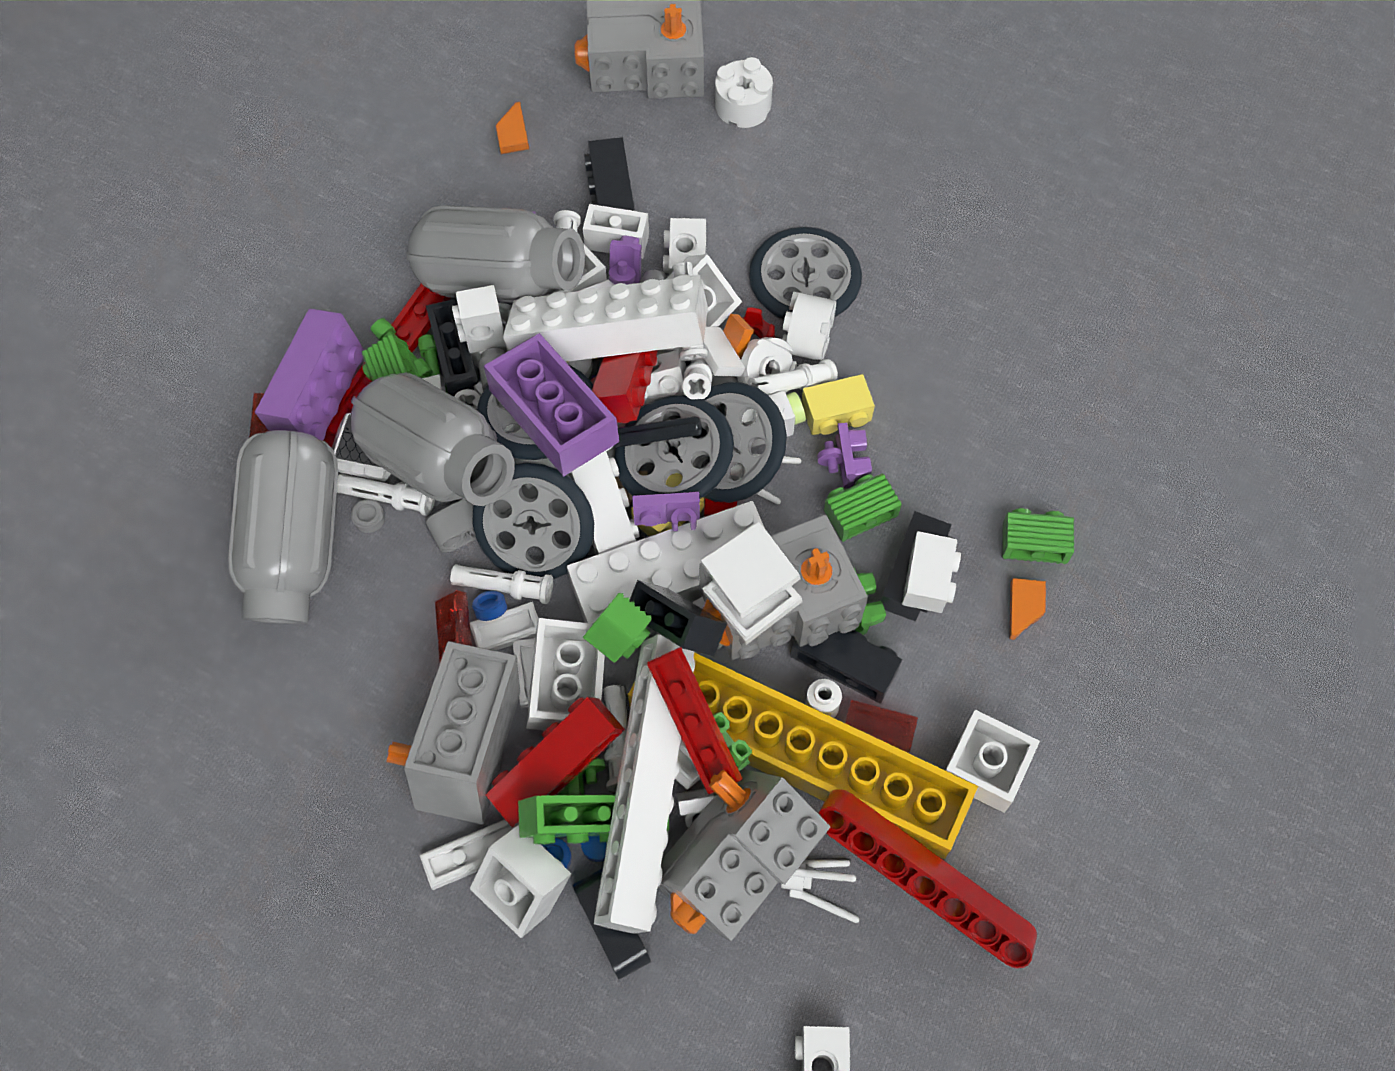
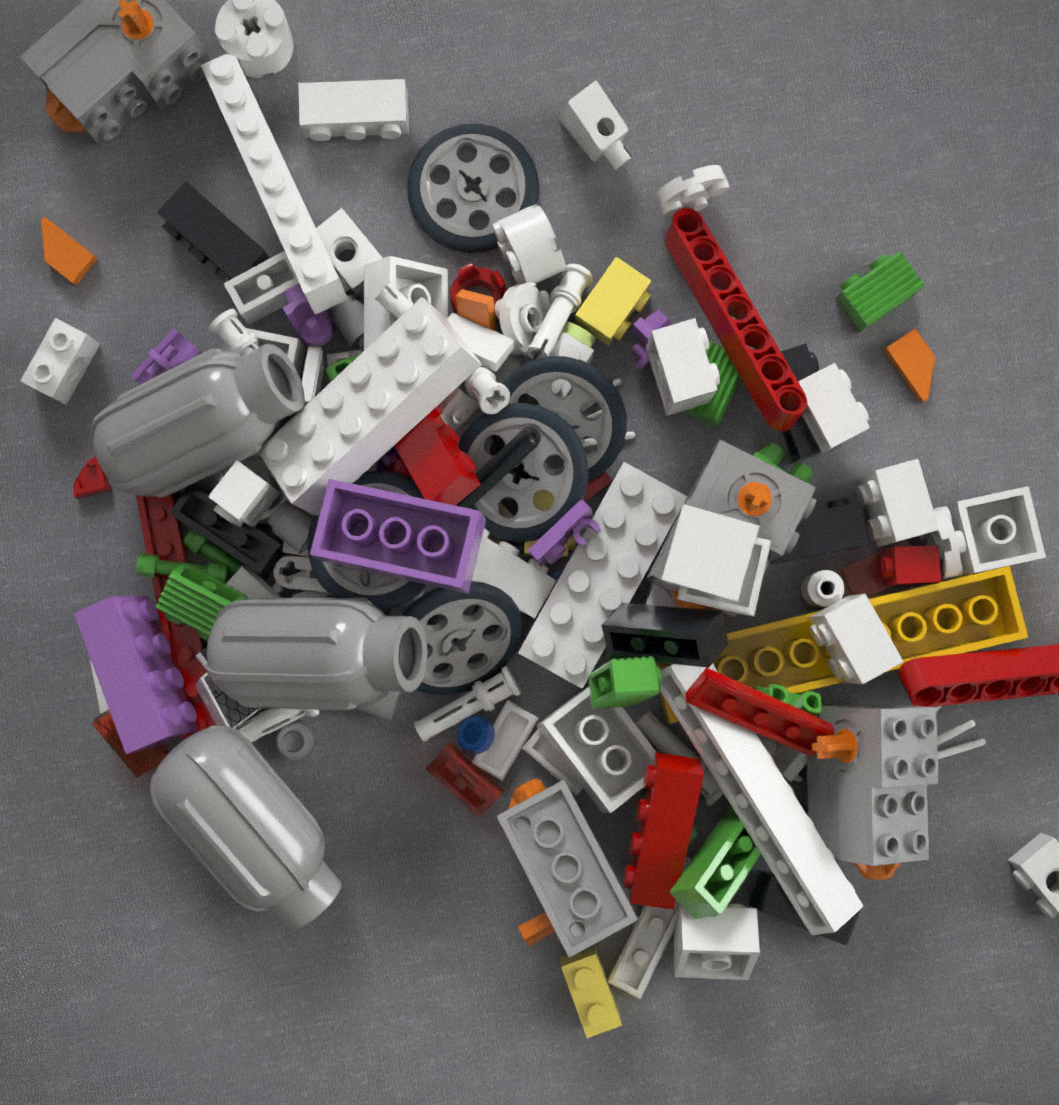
camera: 40 degrees left, 20 degrees up
(397, 266) = (91, 480): none -> red tile
(401, 846) = (590, 992): none -> light yellow brick
(449, 181) = (60, 361): none -> white brick
(673, 173) = (274, 184): none -> white brick
(768, 175) = (353, 109): none -> white brick
(810, 730) = (854, 640): none -> white brick
(844, 462) = (682, 366): none -> white brick
(903, 728) = (911, 565): none -> red brick
(910, 471) = (704, 271): none -> red beam
(920, 289) = (594, 113): none -> white torso
(927, 679) = (896, 503): none -> white brick
(942, 733) = (950, 544): none -> white plate
(952, 372) = (692, 192): none -> white plate

